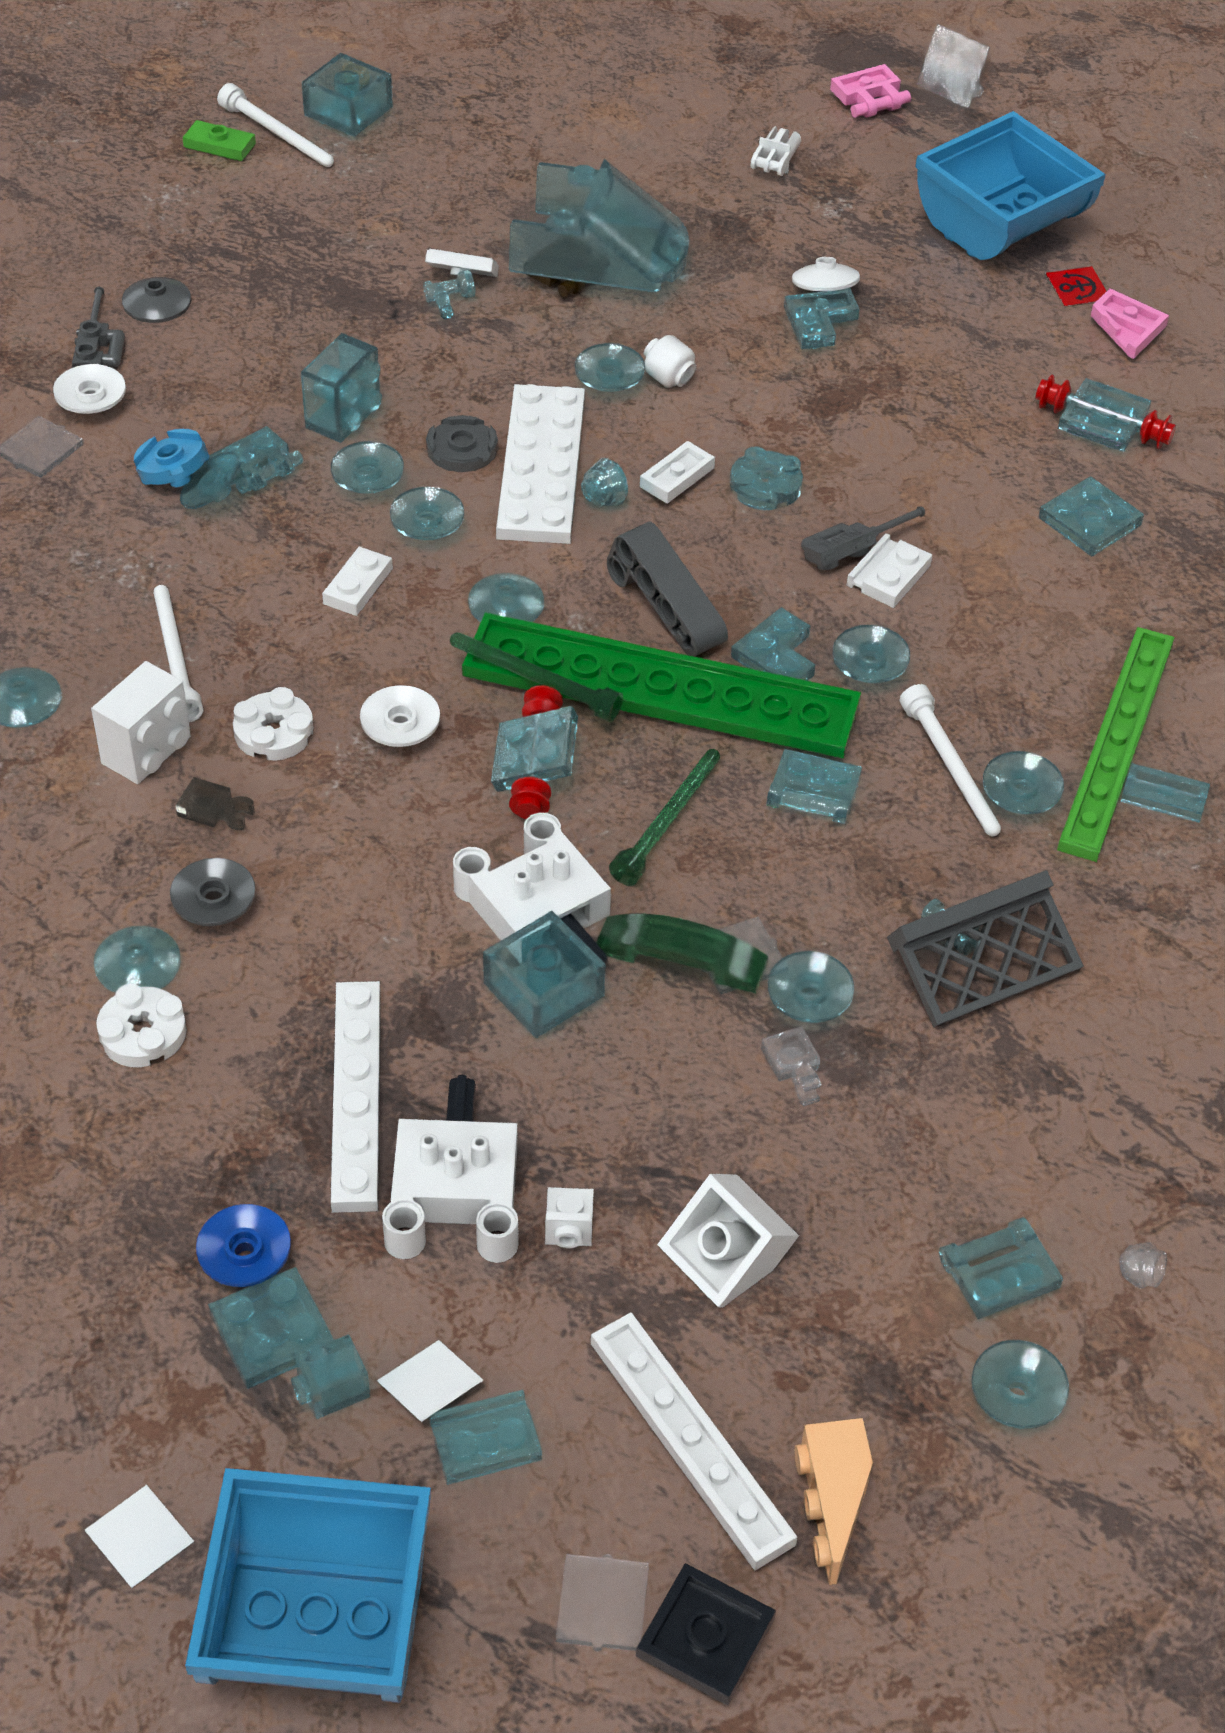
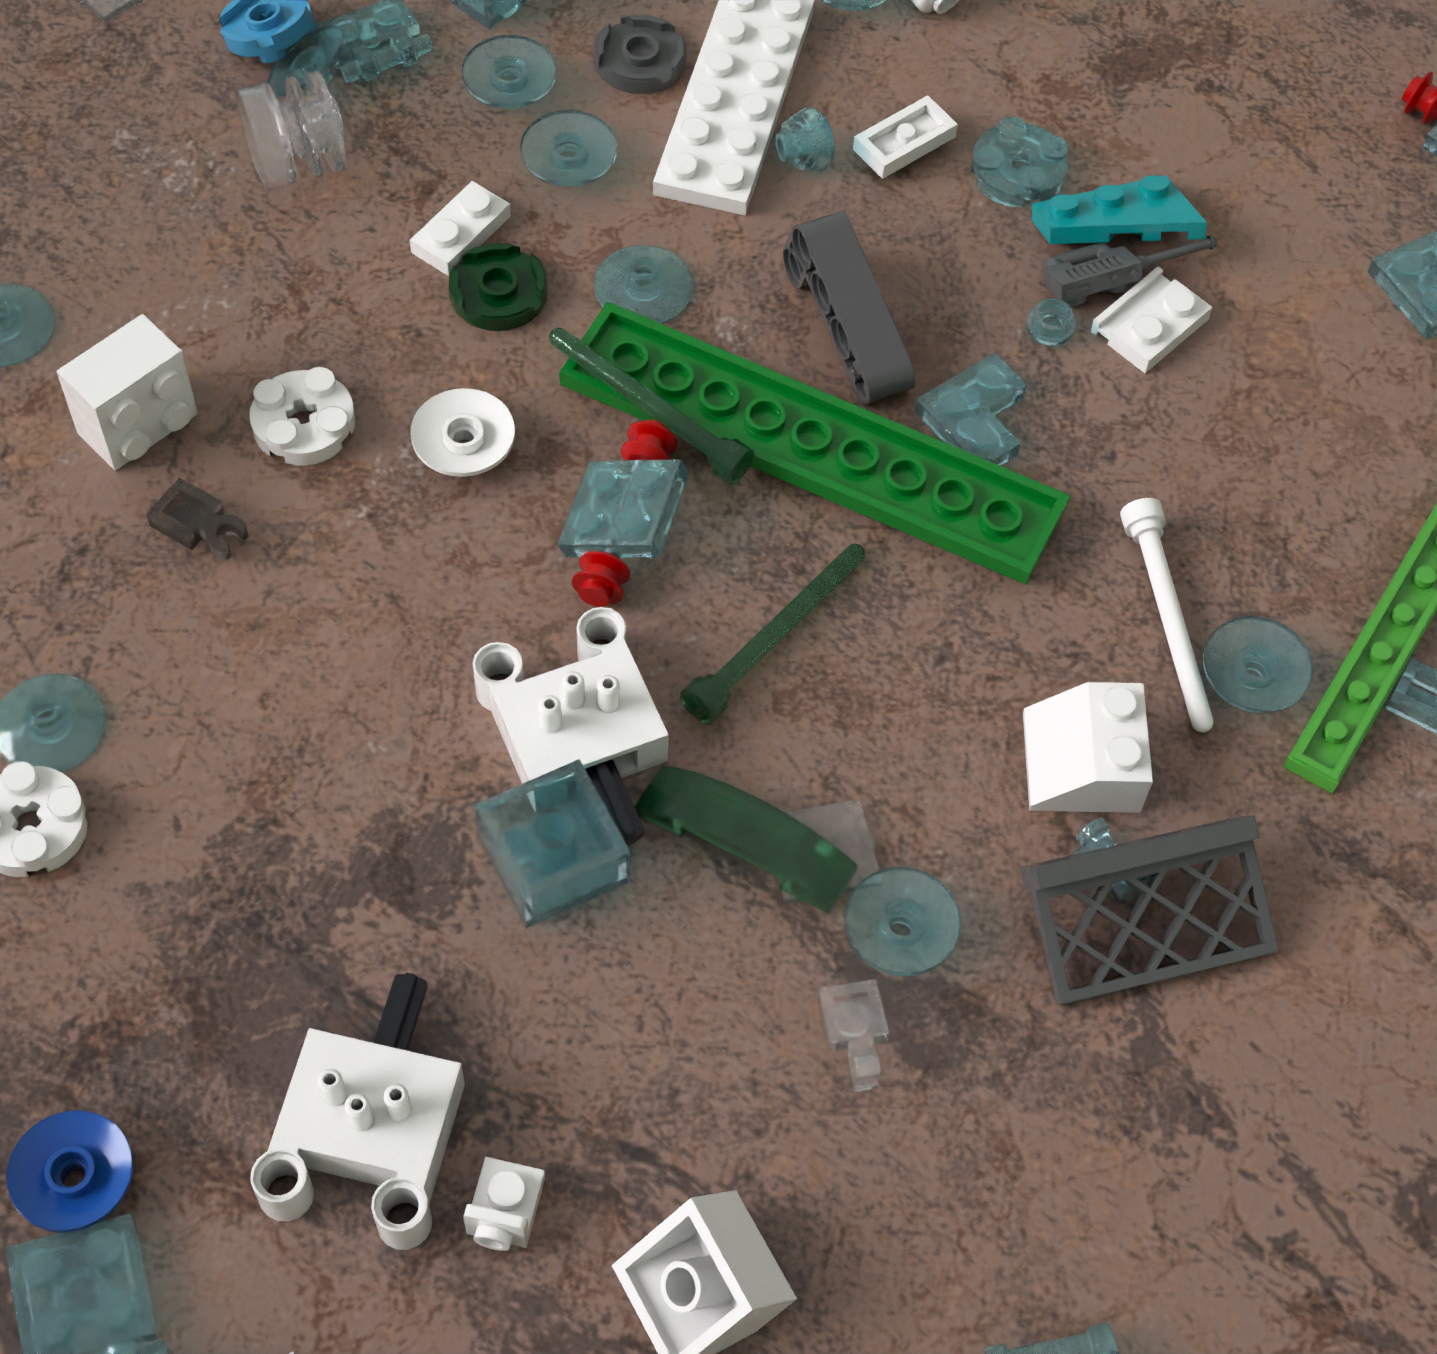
camera: 10 degrees right, 10 degrees up
(174, 650) = (199, 359): white piece -> none
(212, 891) = (157, 628): dark grey dish -> none
(215, 527) = (292, 129): none -> clear wheel
(356, 1098) = (273, 975): white plate -> none
(397, 617) = (498, 287): none -> dark green tile
(814, 785) = (984, 609): clear light blue plate -> none
(817, 581) = (1049, 313): none -> clear light blue plate
(834, 505) = (1133, 208): none -> teal wing
(871, 654) = (1101, 426): clear light blue dish -> none
(917, 856) = (1089, 749): none -> white slope

